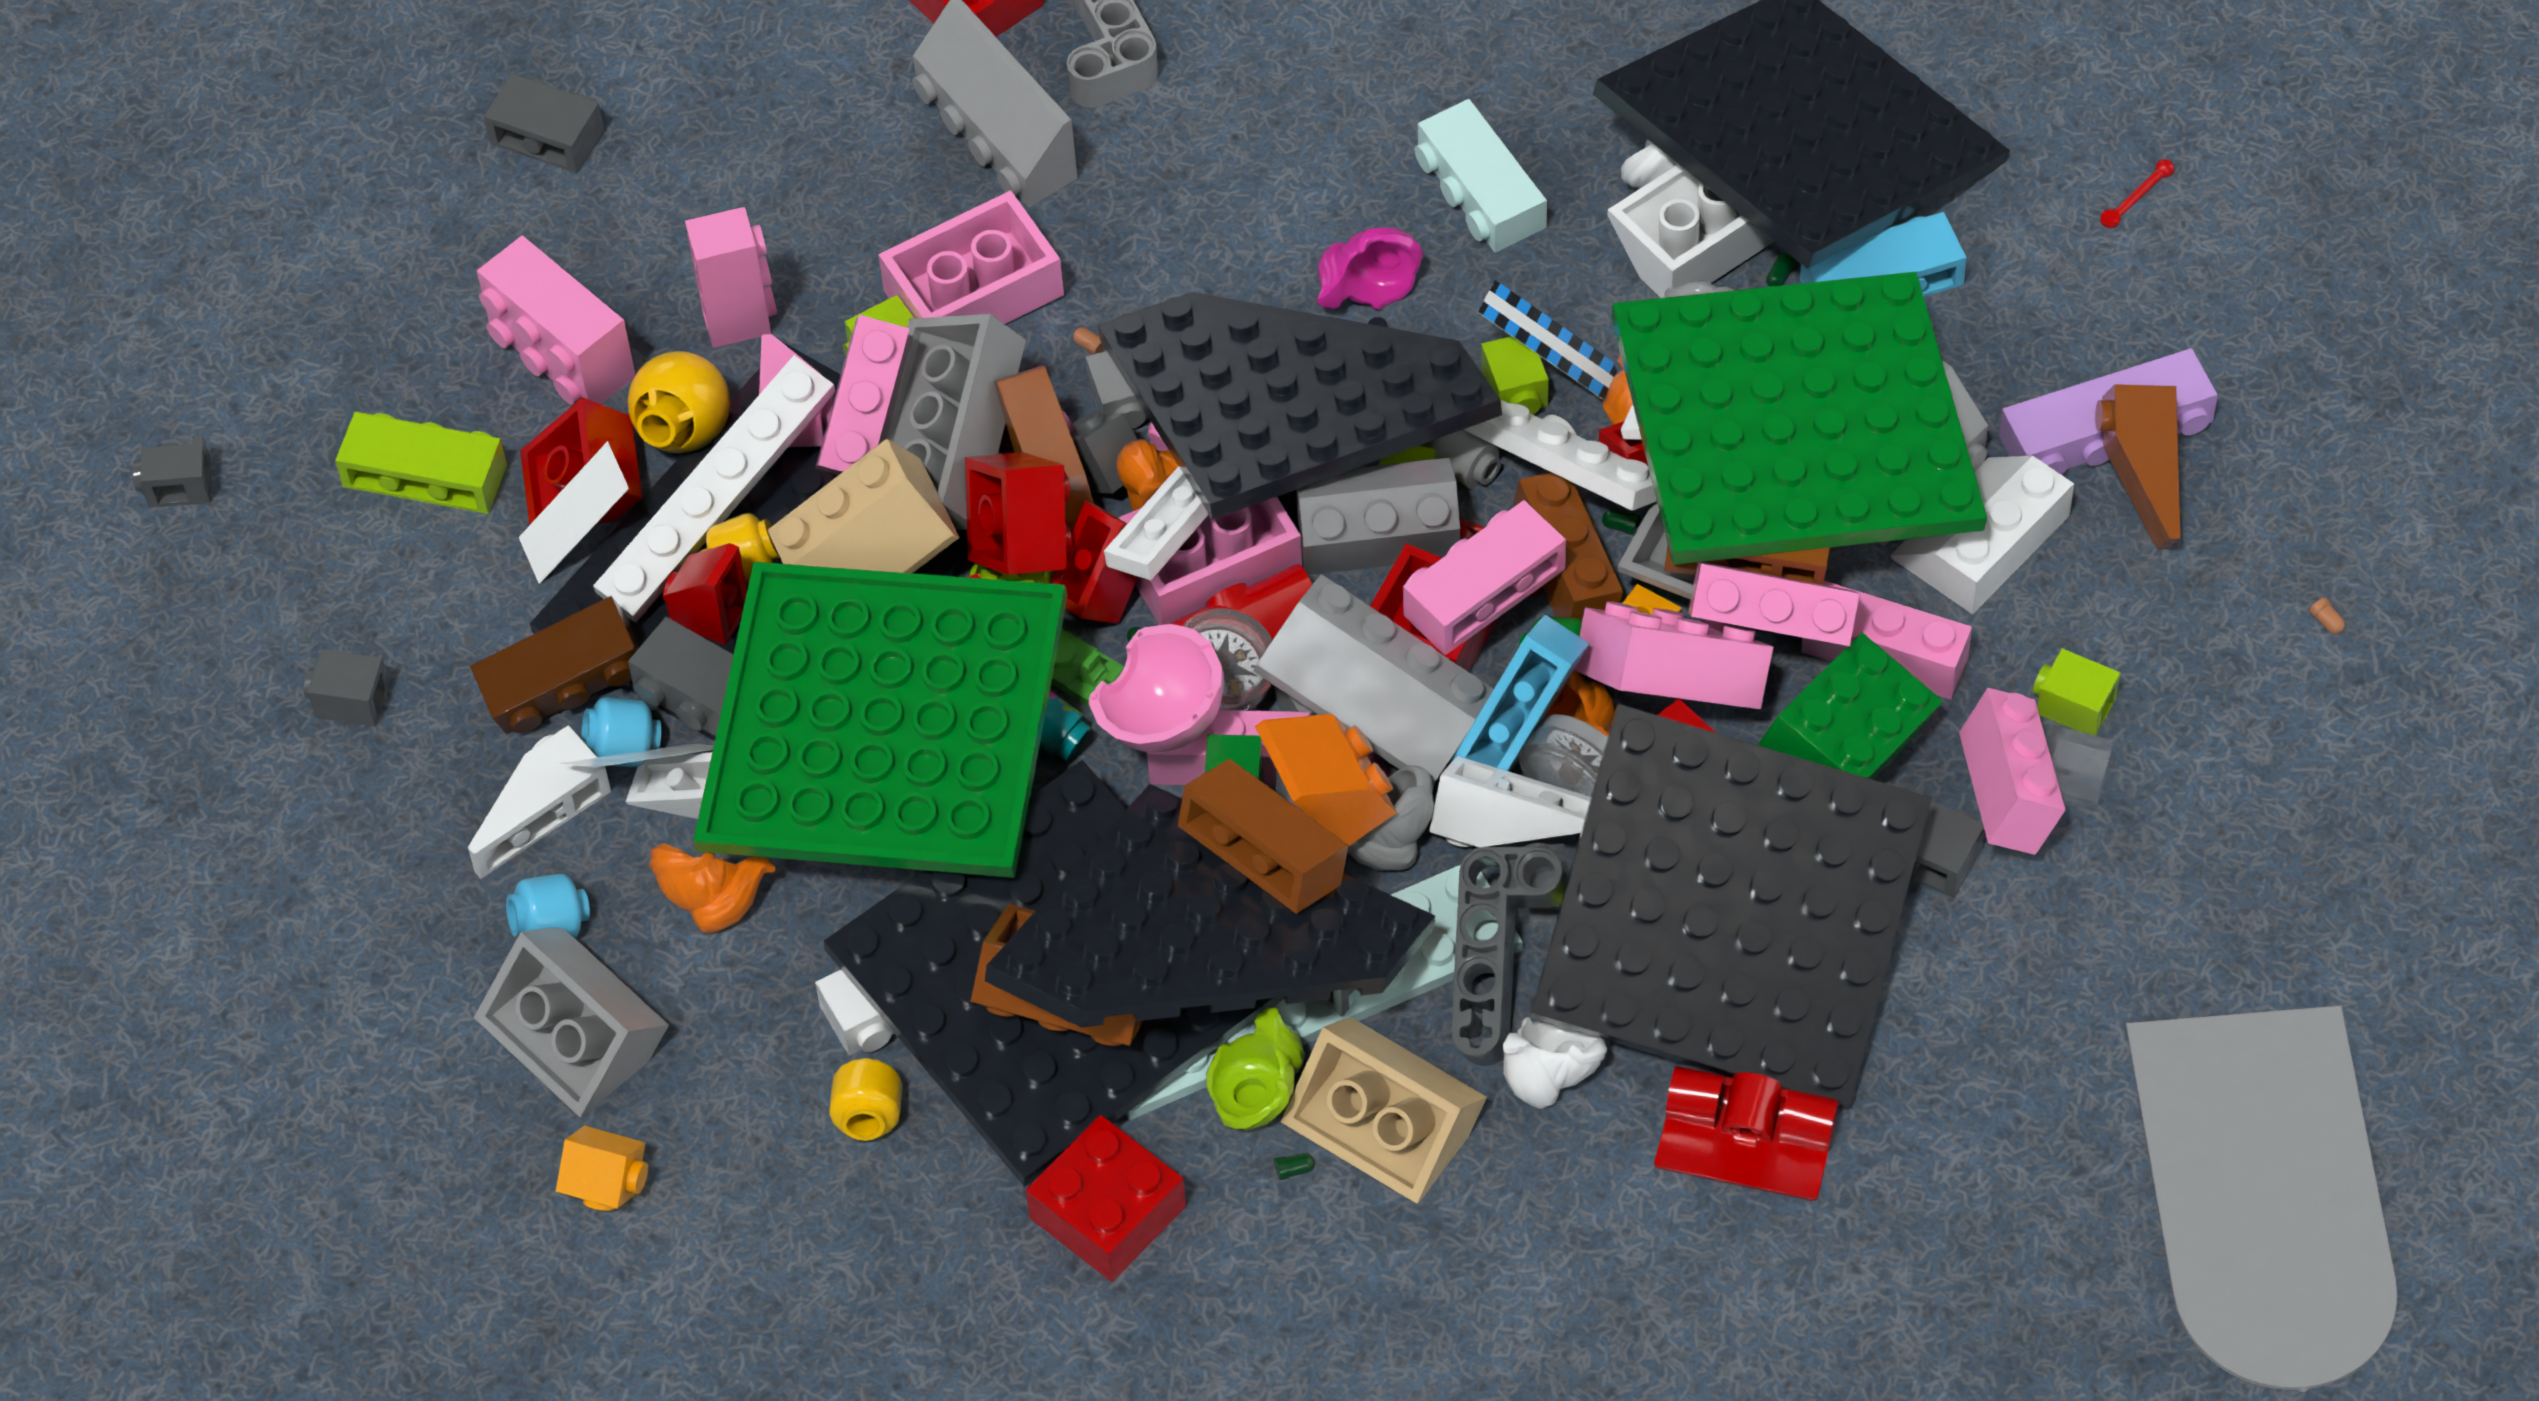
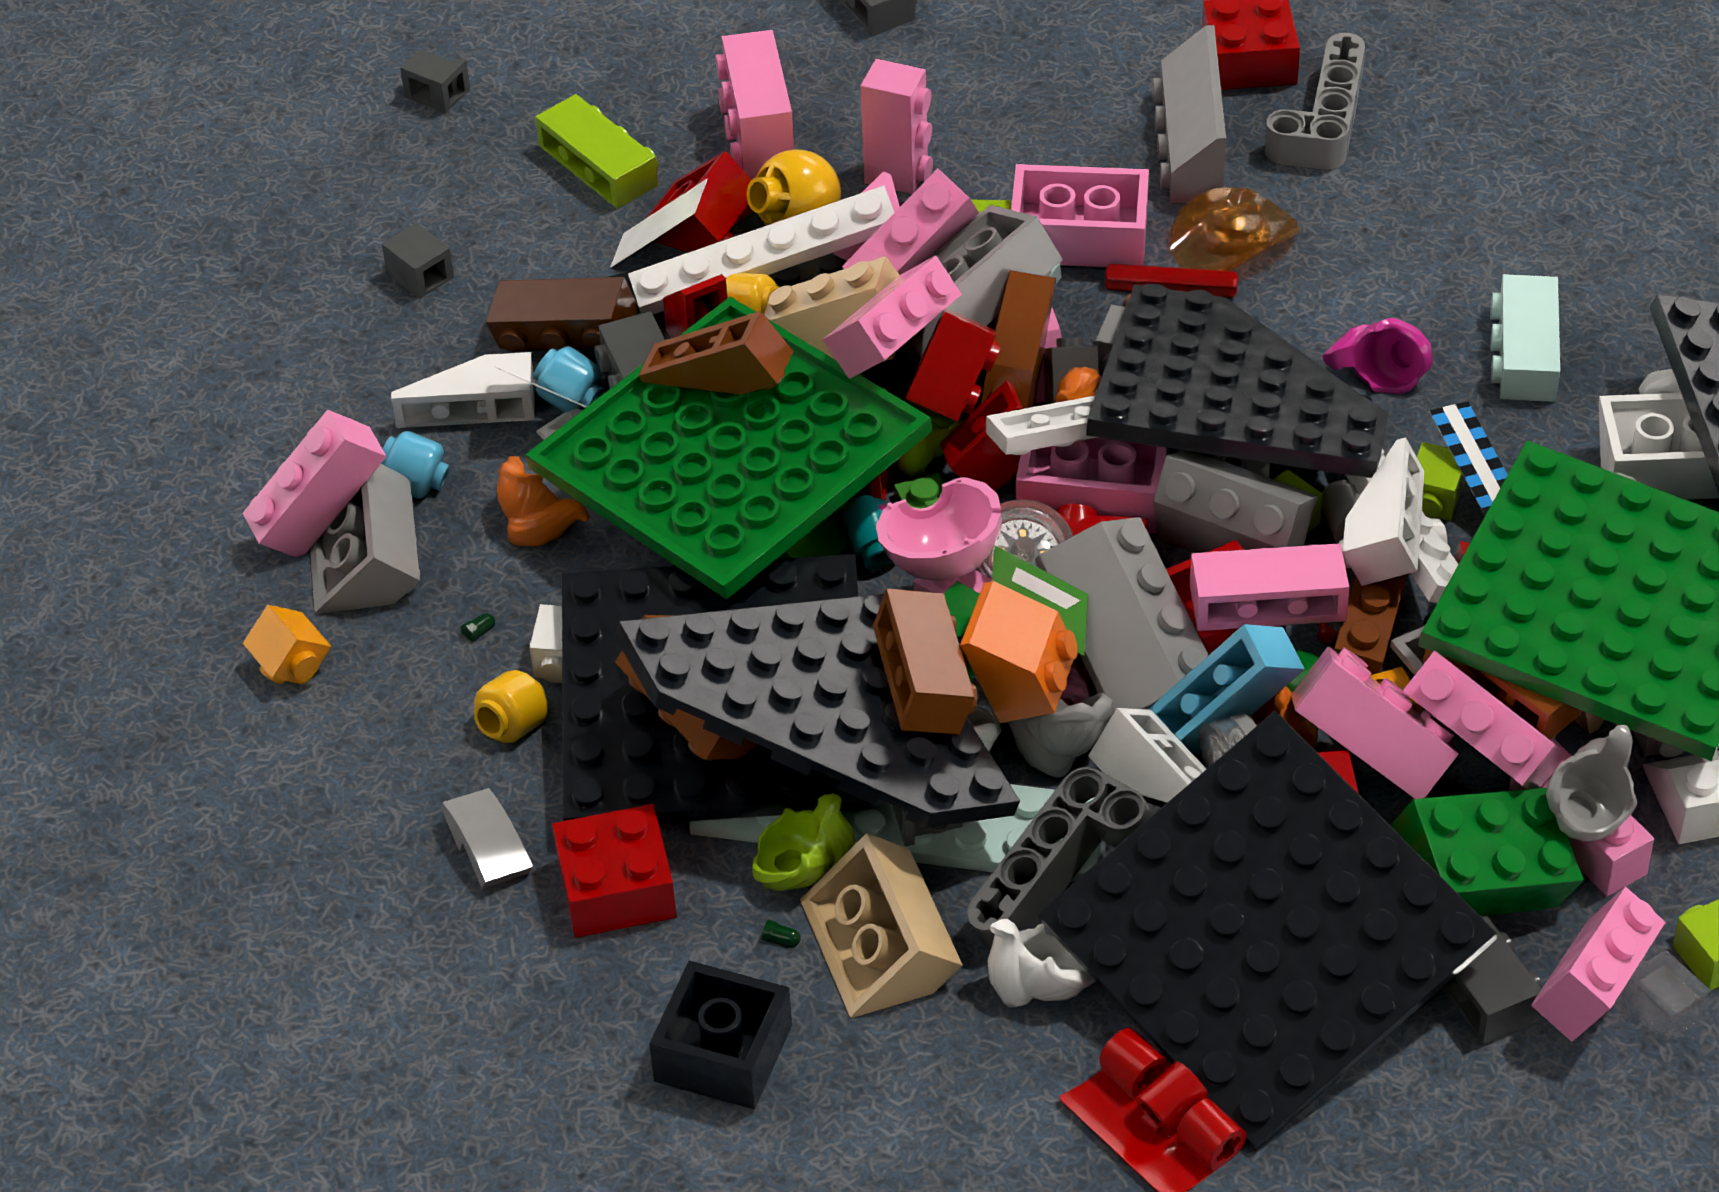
camera: 35 degrees right, 10 degrees down
(496, 991) = (314, 484): none -> bright pink brick
(753, 1037) = (478, 626): none -> dark green piece
(815, 637) = (722, 358): none -> dark orange slope
(952, 501) = (892, 317): none -> bright pink brick
(966, 1239) = (487, 836): none -> light grey slope
(1103, 294) = (1217, 282): none -> red axle
(1116, 211) = (1228, 229): none -> clear orange hat
(1263, 698) = (1045, 589): none -> bright green sticker
(1337, 1290) = (721, 1034): none -> black brick
(1538, 452) = (1386, 519): none -> white slope
(1909, 612) = (1594, 788): none -> light grey hair

